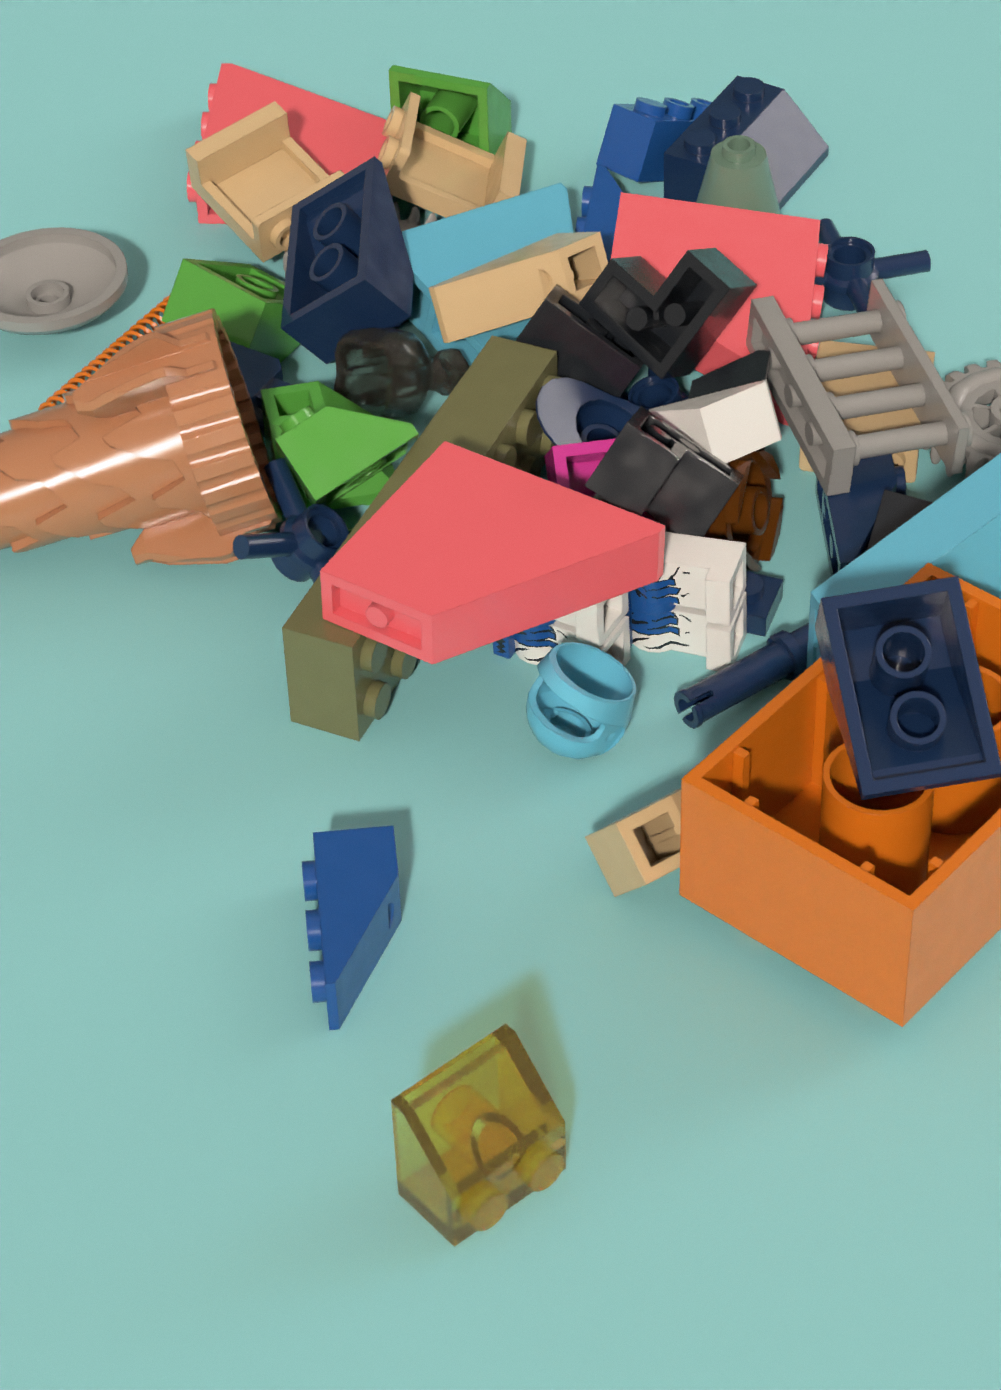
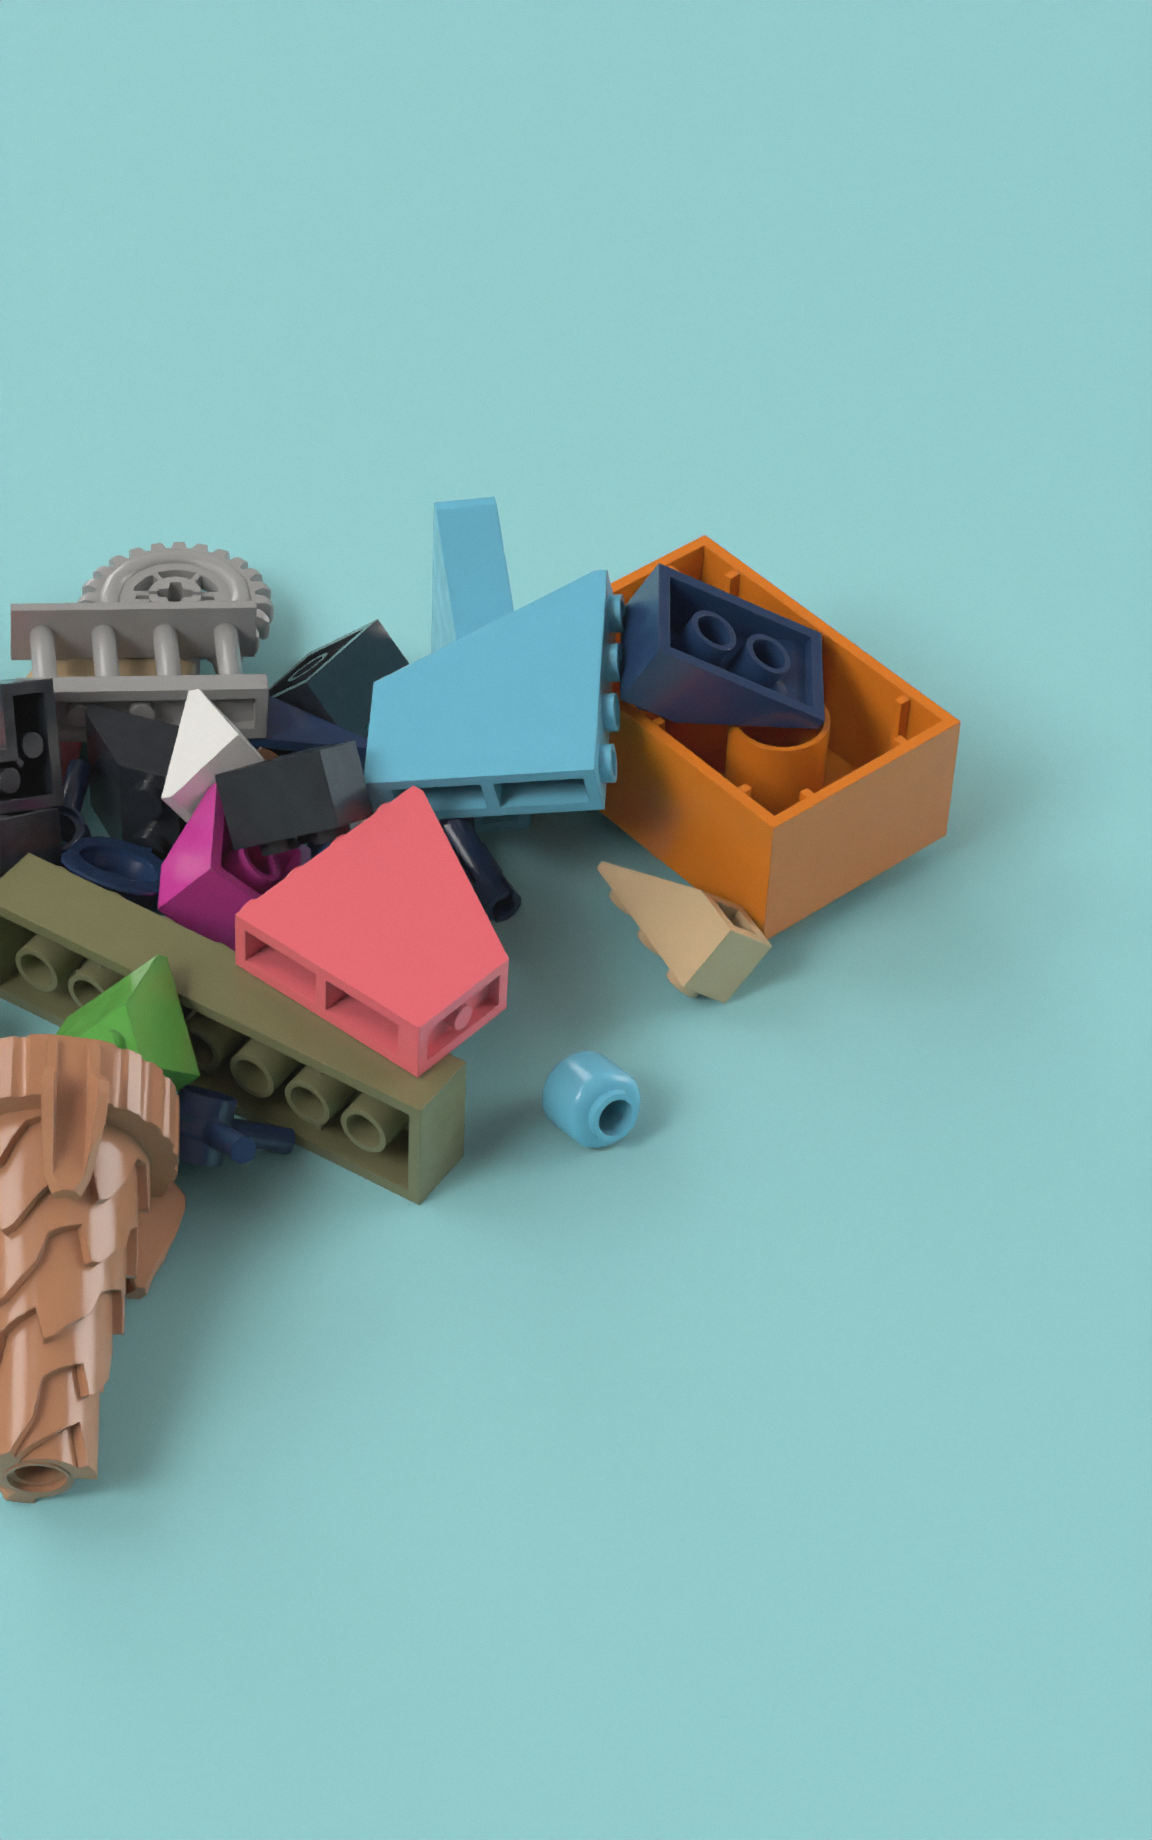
camera: 85 degrees left, 0 degrees up
(357, 912) = (742, 1166): blue slope -> none
(419, 795) = (591, 1099): none -> medium azure head
(477, 1137) = (1052, 1107): clear yellow slope -> none
(580, 701) = (530, 943): medium azure helmet -> none
(769, 549) = (507, 712): none -> medium azure slope

